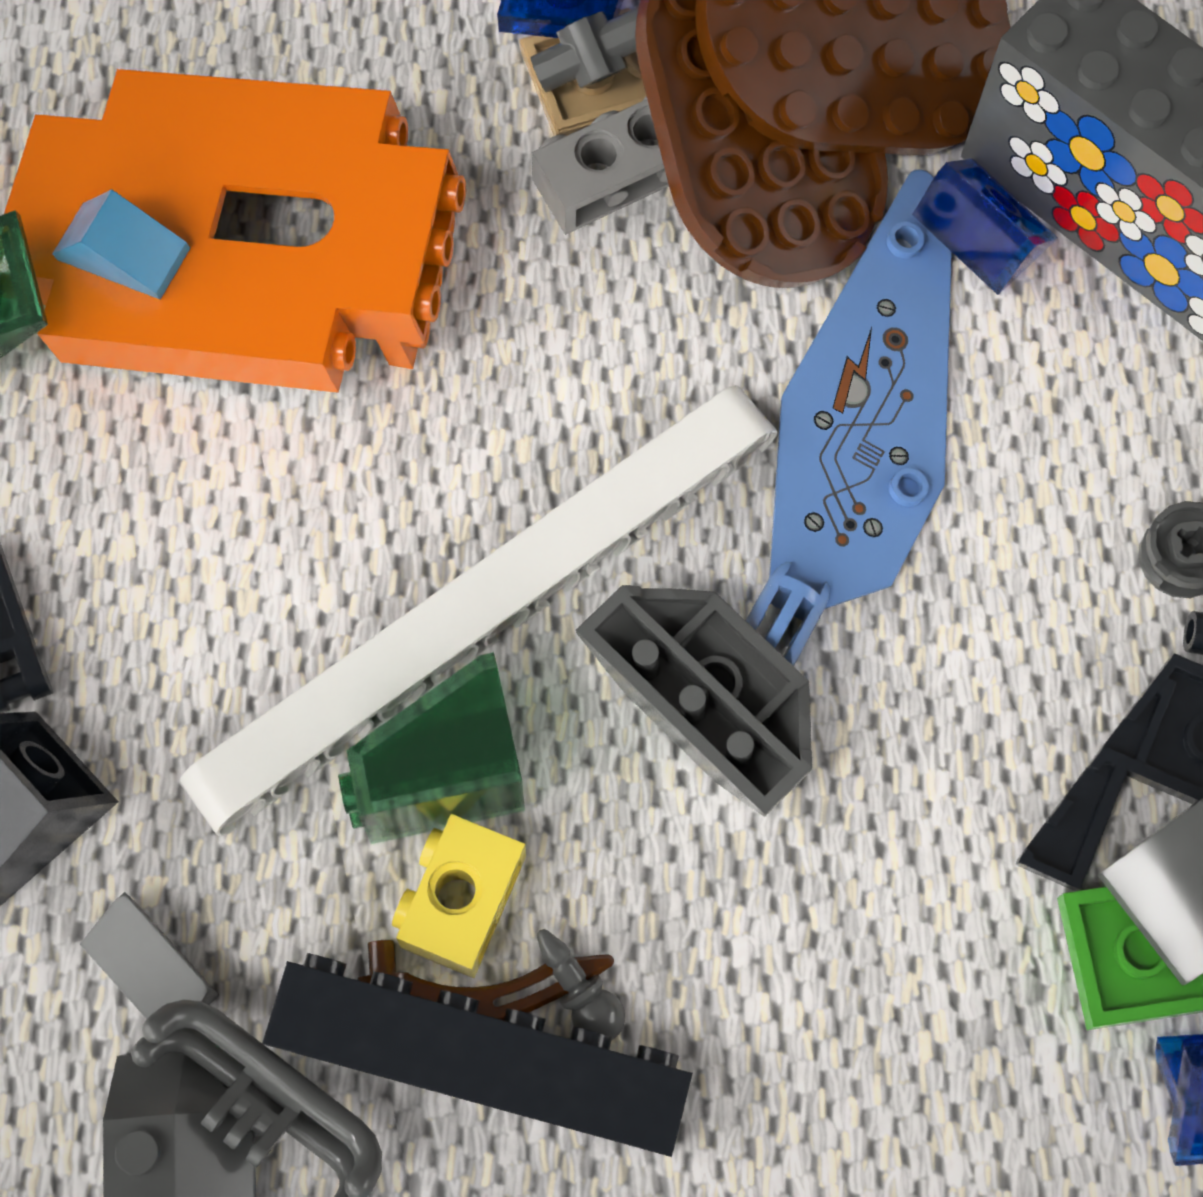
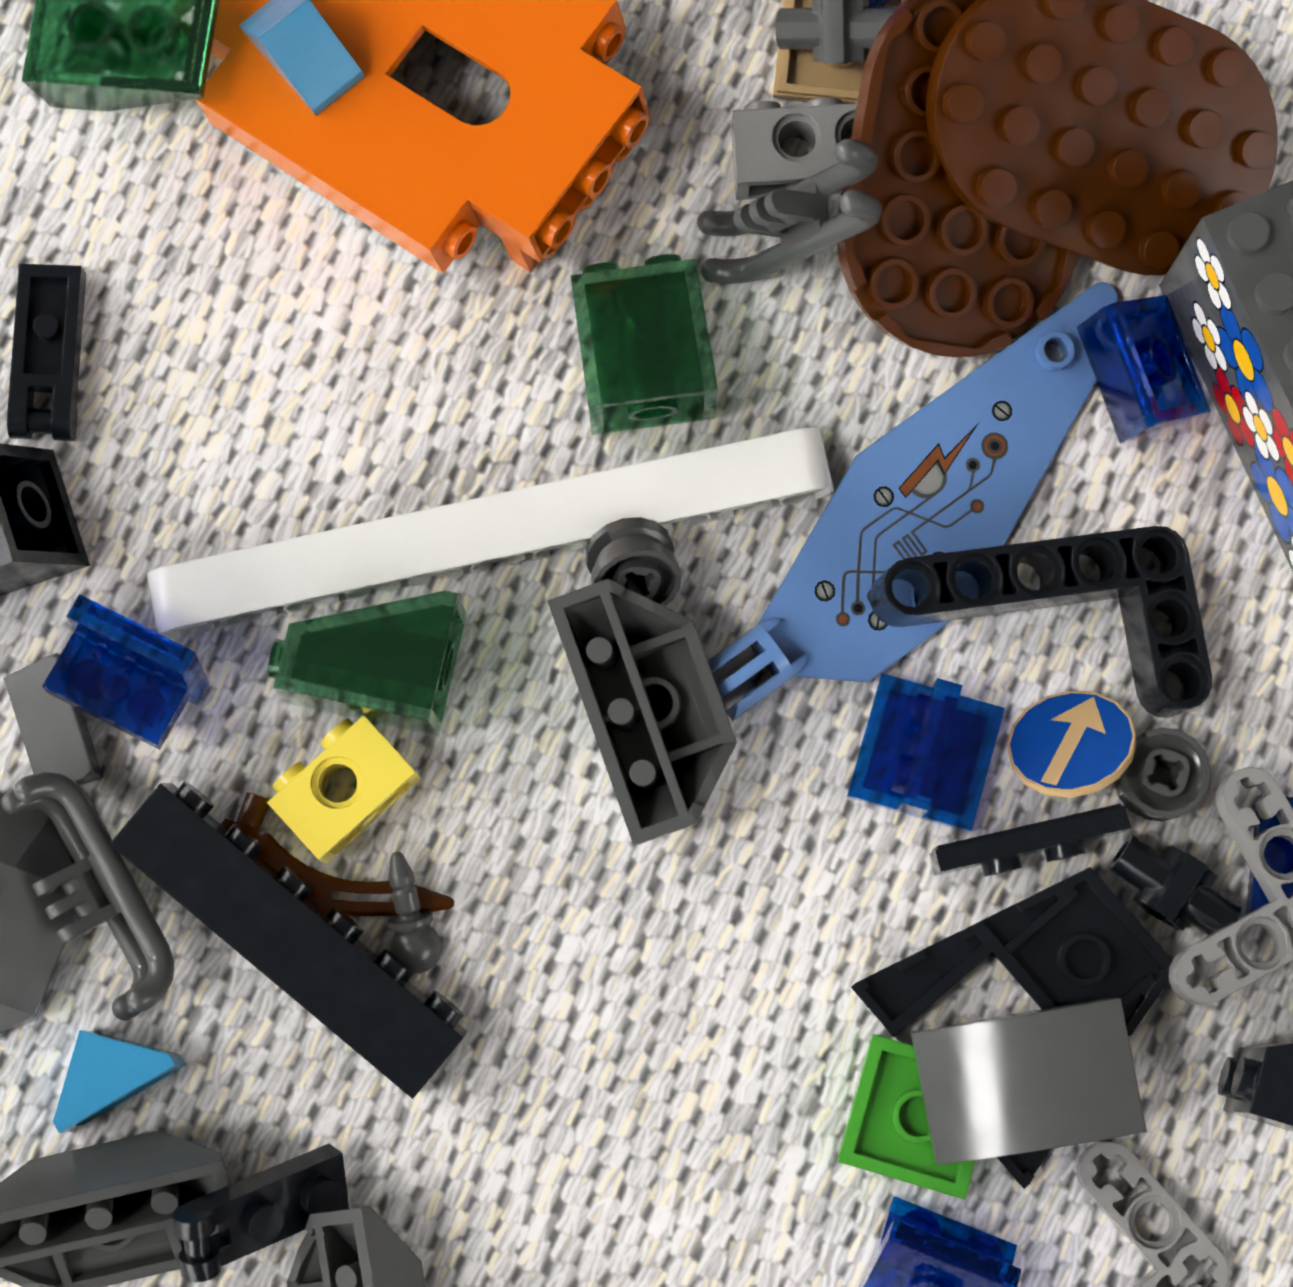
camera: 30 degrees right, 10 degrees up
(202, 873) = (125, 673): none -> clear blue bracket
(551, 381) = (644, 344): none -> clear green slope
(632, 557) = (637, 556): none -> dark grey wheel
(638, 207) = (797, 217): none -> dark grey piece
(973, 622) = (926, 751): none -> clear blue bracket
(1085, 401) = (1064, 584): none -> black beam
(1099, 556) = (1071, 744): none -> blue piece
(1128, 643) = (1056, 837): none -> black plate

